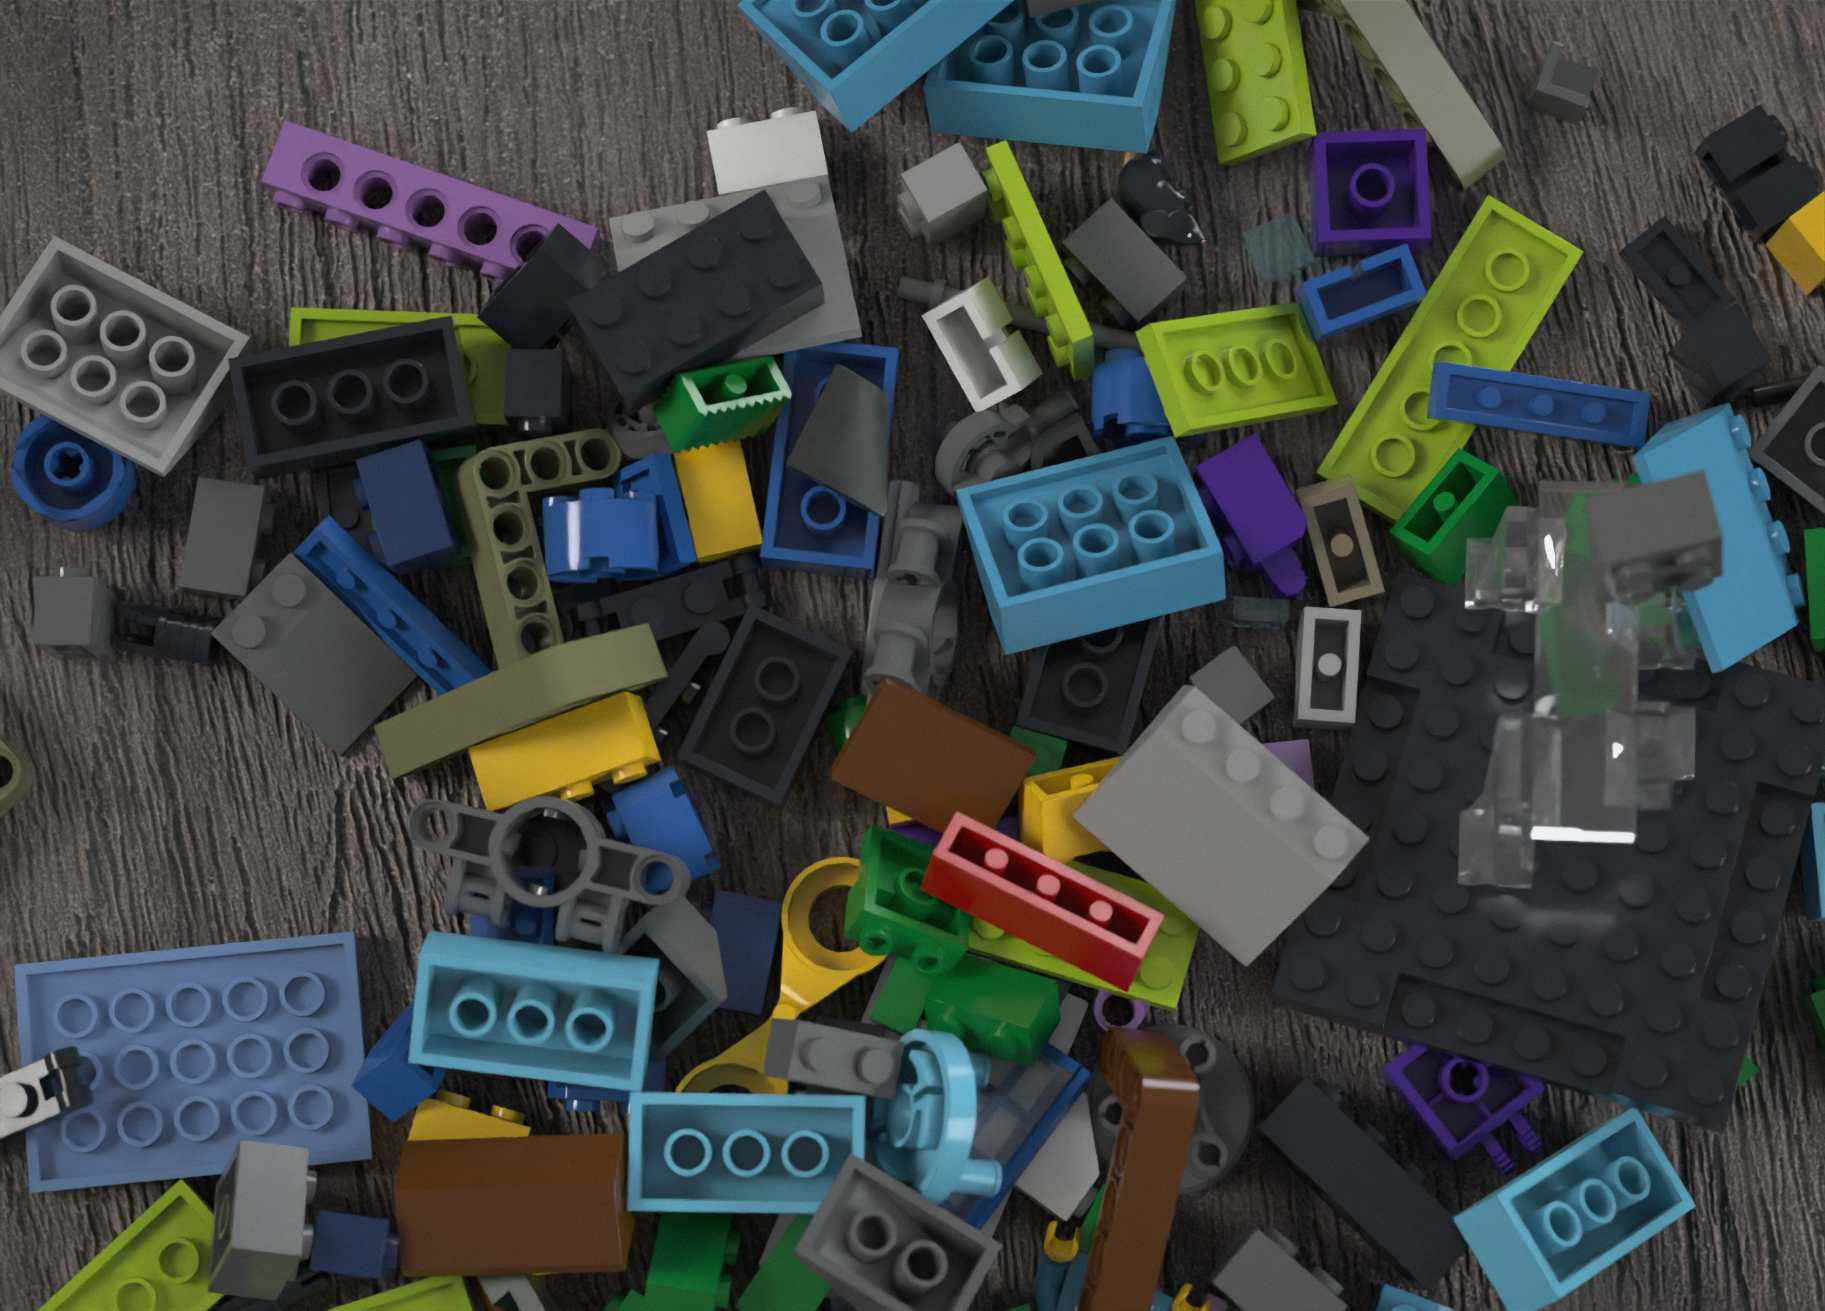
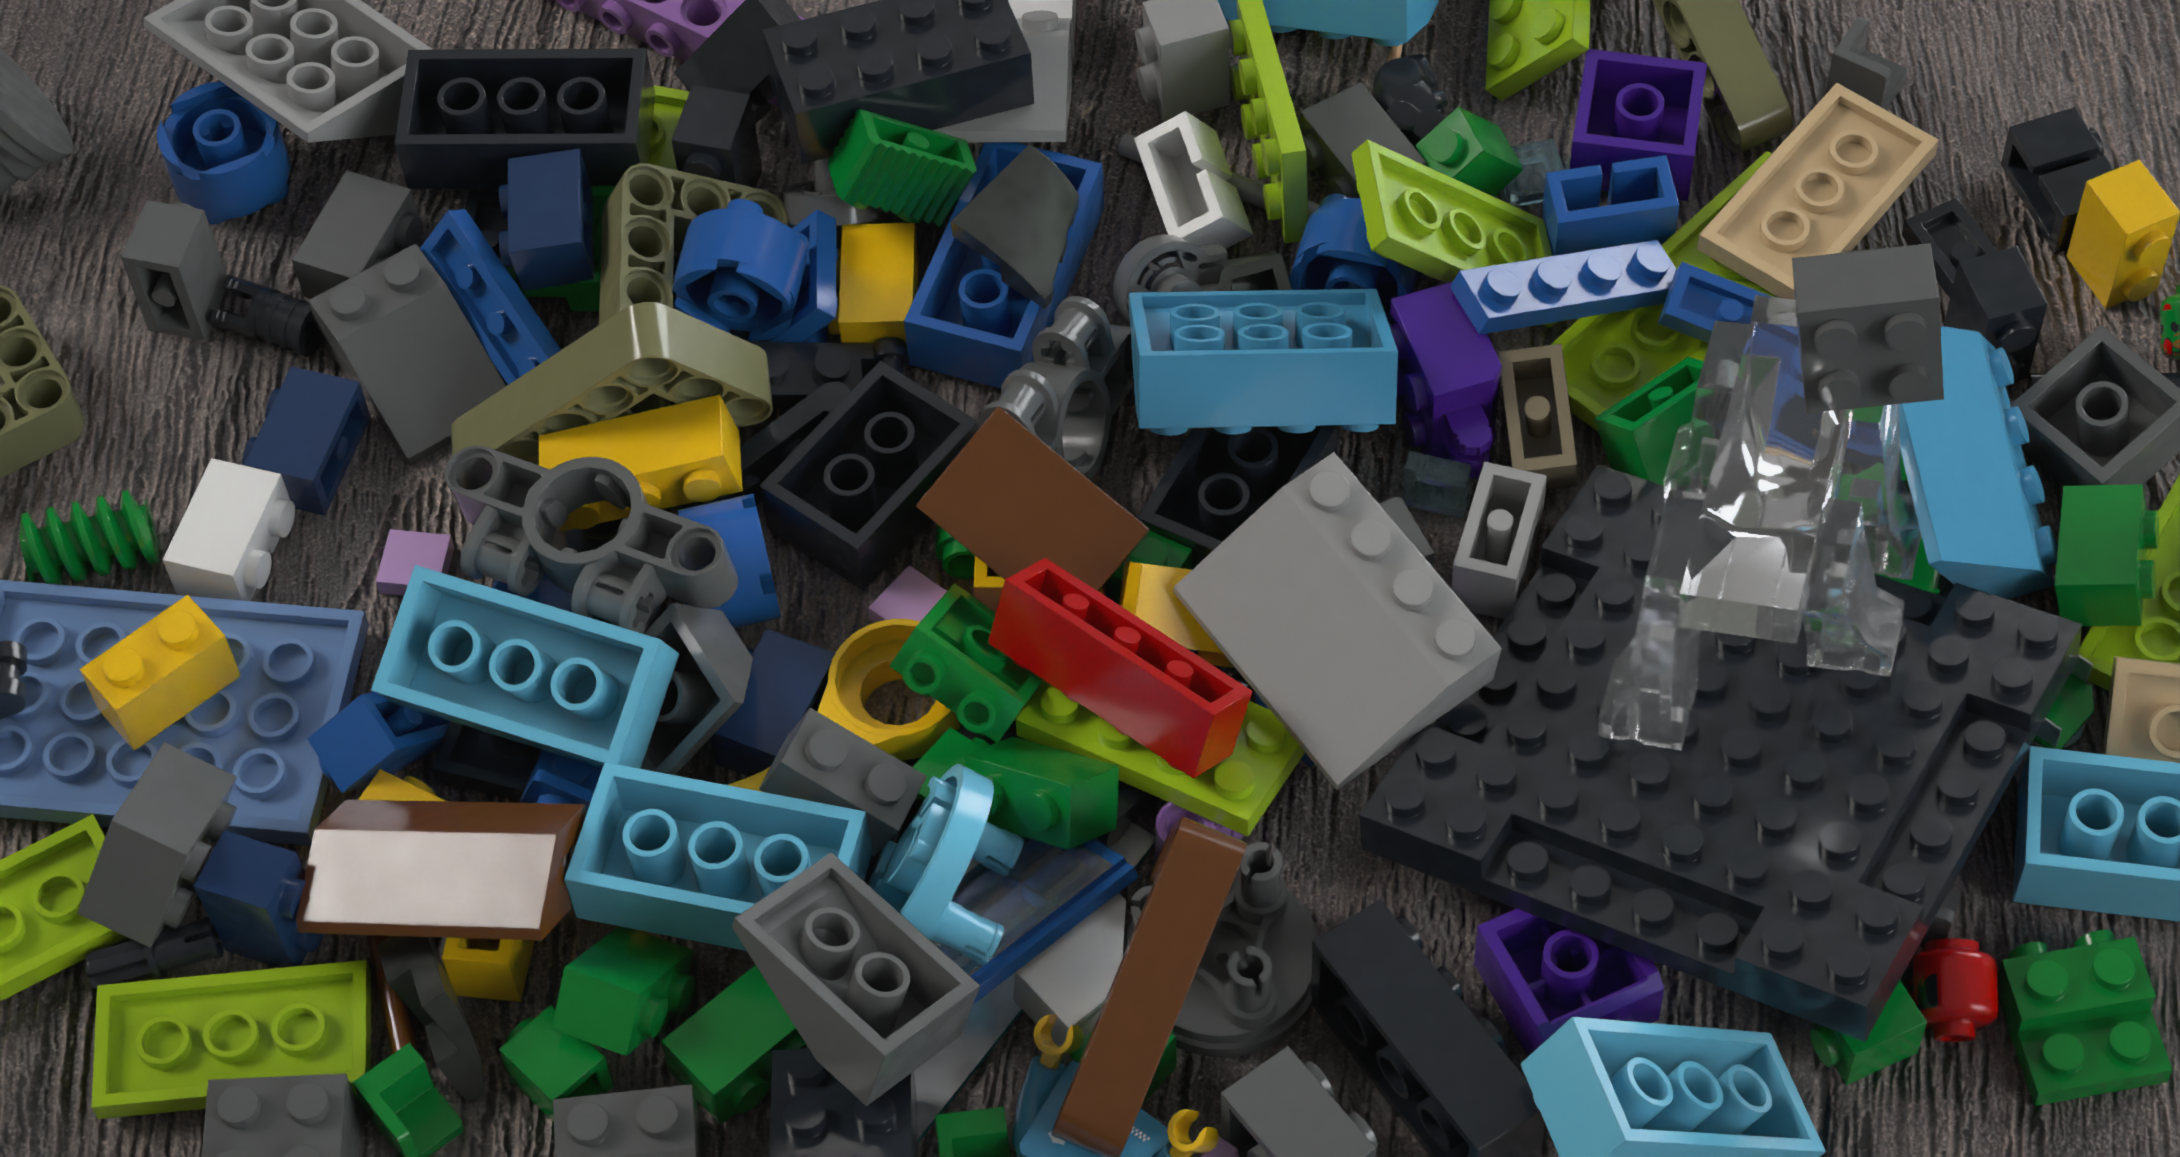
camera: 15 degrees right, 25 degrees down
(85, 909) = (88, 539): none -> green piece
(202, 1046) = (160, 672): none -> yellow brick
(208, 874) = (229, 532): none -> white piece
(245, 762) = (310, 435): none -> dark blue brick
(379, 864) = (408, 549): none -> lavender tile
(829, 822) = (906, 597): none -> lavender tile
(1223, 258) = (1471, 152): none -> green brick
(1344, 409) = (1564, 286): none -> plate
(1545, 247) = (1818, 190): none -> tan plate
(1779, 1026) = (1954, 988): none -> red head

